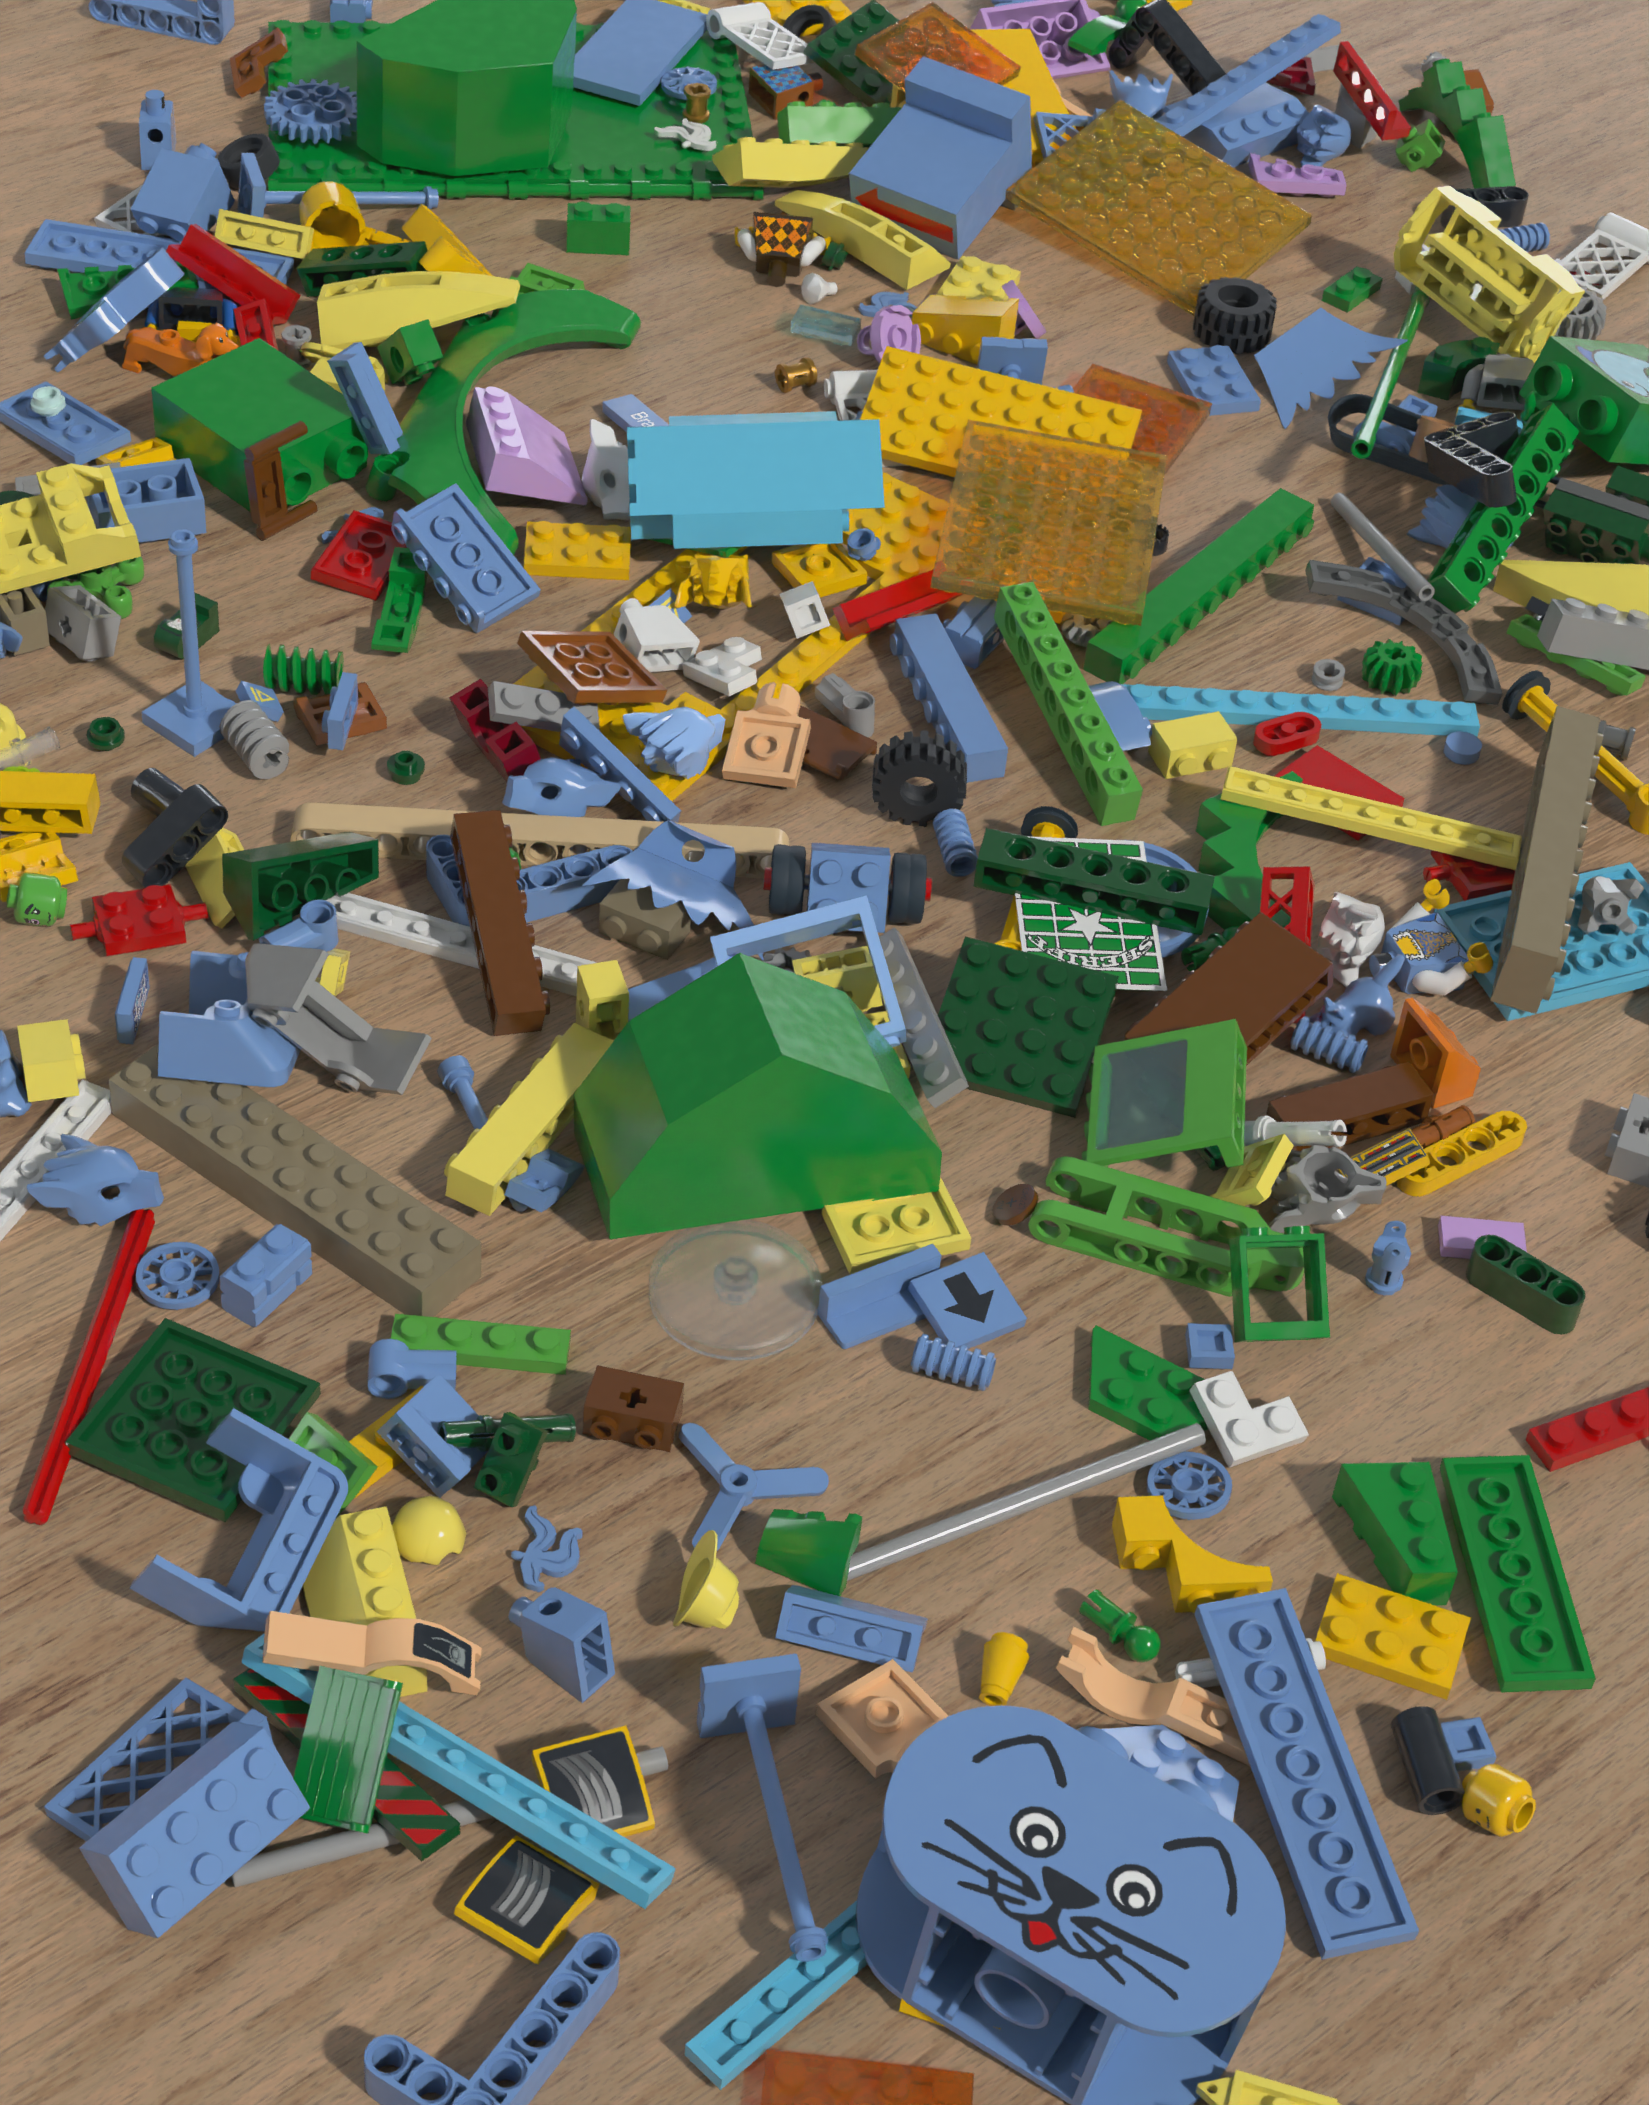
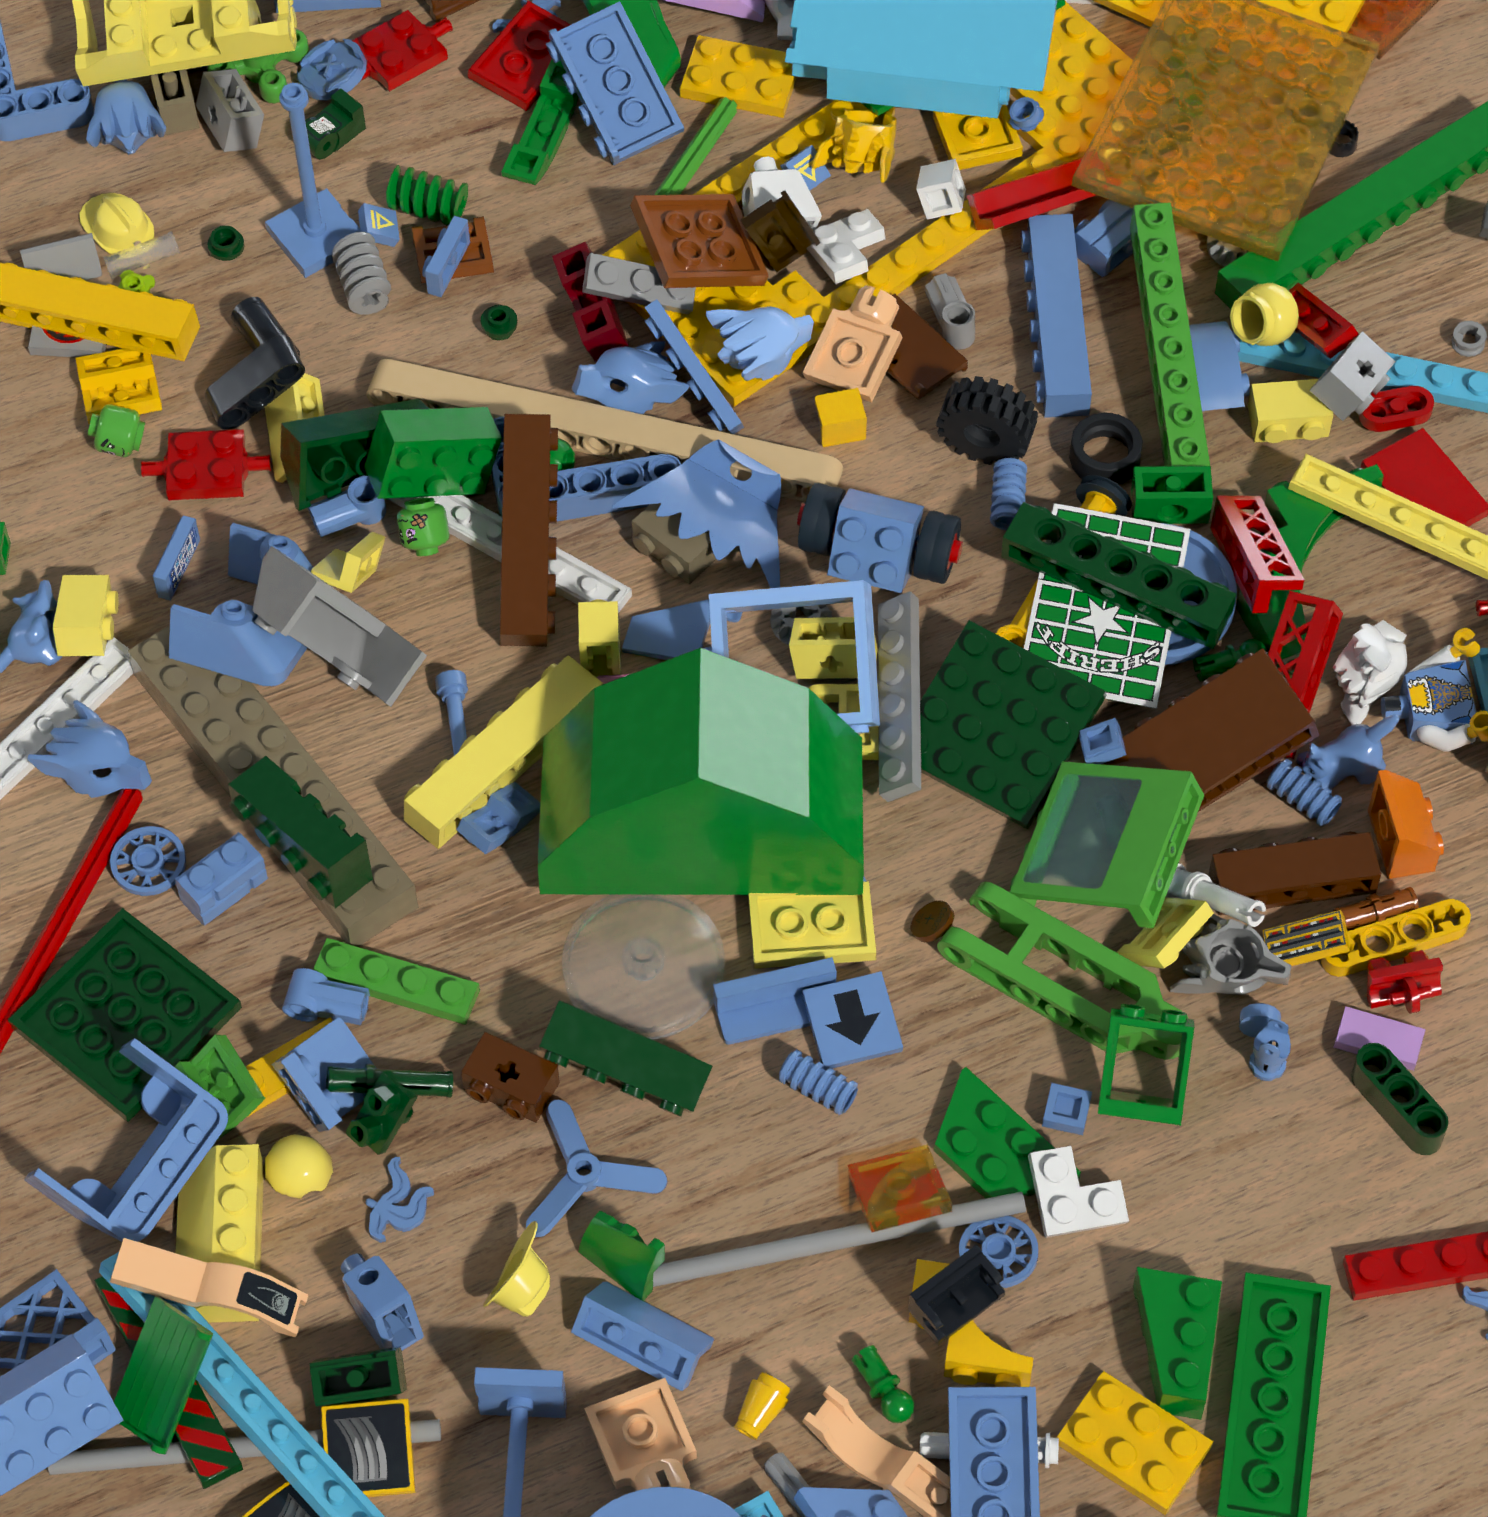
camera: 20 degrees right, 15 degrees up
(160, 584) = (331, 68): none -> medium blue tile
(237, 563) = (402, 49): none -> red plate
(355, 1201) = (301, 832): none -> dark green wedge
(382, 866) = (432, 452): none -> green brick
(386, 938) = (423, 526): none -> bright green head
(561, 599) = (698, 148): none -> bright green axle
(563, 1714) = (358, 1376): none -> dark green brick
(667, 651) = (780, 231): none -> dark brown plate
(749, 1365) = (625, 1058): none -> dark green wedge
(776, 799) = (841, 417): none -> yellow panel
(1031, 778) = (1110, 426): none -> black tyre
(1071, 1442) = (899, 1188): none -> clear yellow tile
(1115, 815) = (1172, 494): none -> green brick
(1130, 1021) = (1102, 742): none -> medium blue tile
(1148, 665) = (1265, 315): none -> light yellow piece
(1174, 1517) = (956, 1295): none -> black hinge
(1191, 668) = (1321, 323): none -> red plate
(1211, 848) = (1242, 549): none -> red fence
(1246, 704) = (1353, 376): none -> light grey brick
(1361, 1238) = (1256, 1017): none -> medium blue tile
(1491, 1185) = (1404, 983): none -> red hips

